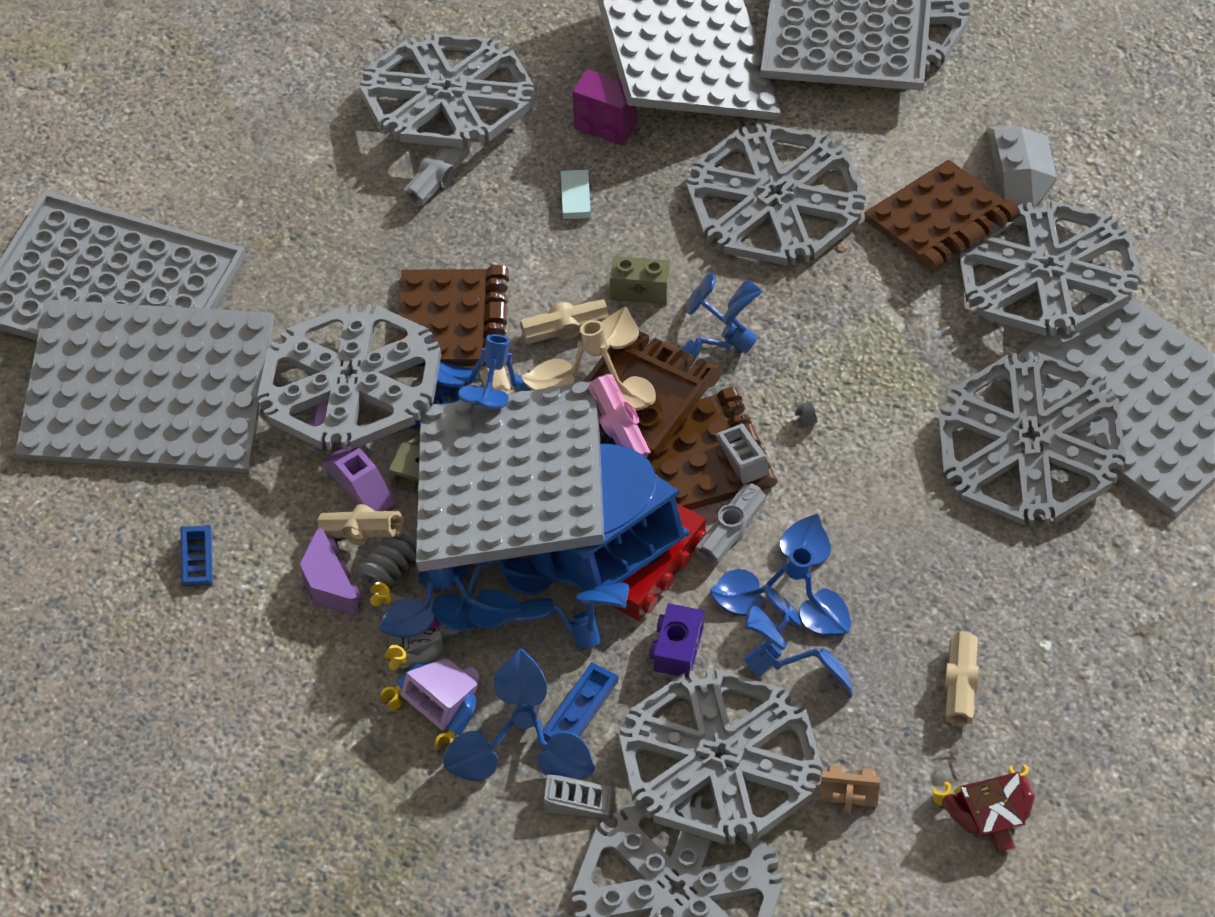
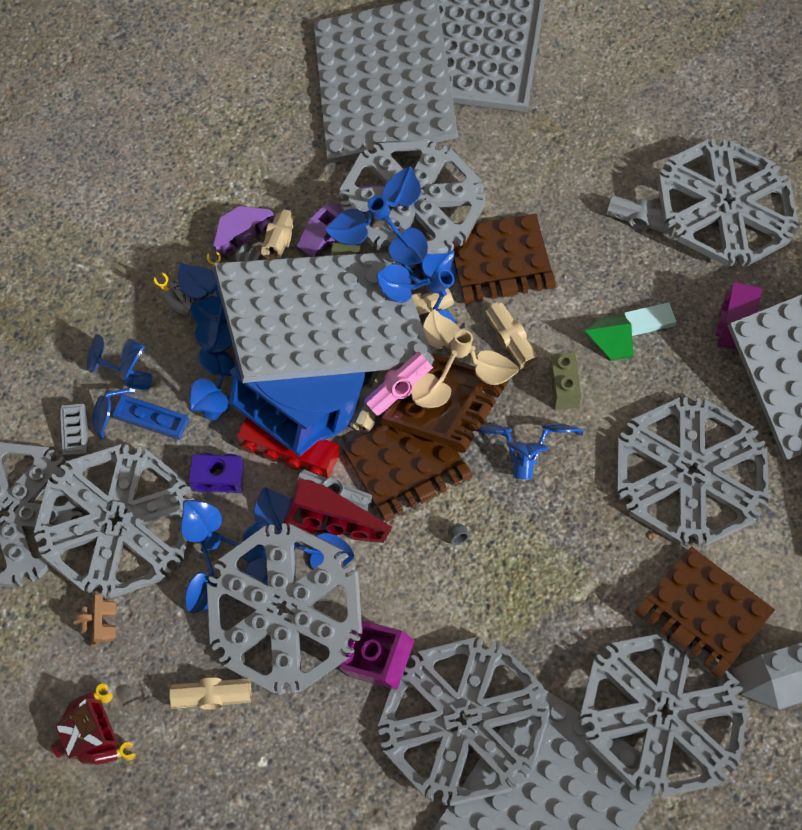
camera: 80 degrees right, 10 degrees up
(196, 533) = (252, 139): blue slope -> none
(380, 435) = (401, 189): none -> blue plant
(440, 693) = (144, 321): lavender torso -> none
(589, 224) = (613, 336): none -> green slope
(744, 455) = (388, 497): light grey slope -> none
(760, 525) = (323, 510): none -> dark red wedge
(860, 596) = (303, 593): none -> light grey plate
(946, 501) = (378, 655): none -> magenta brick

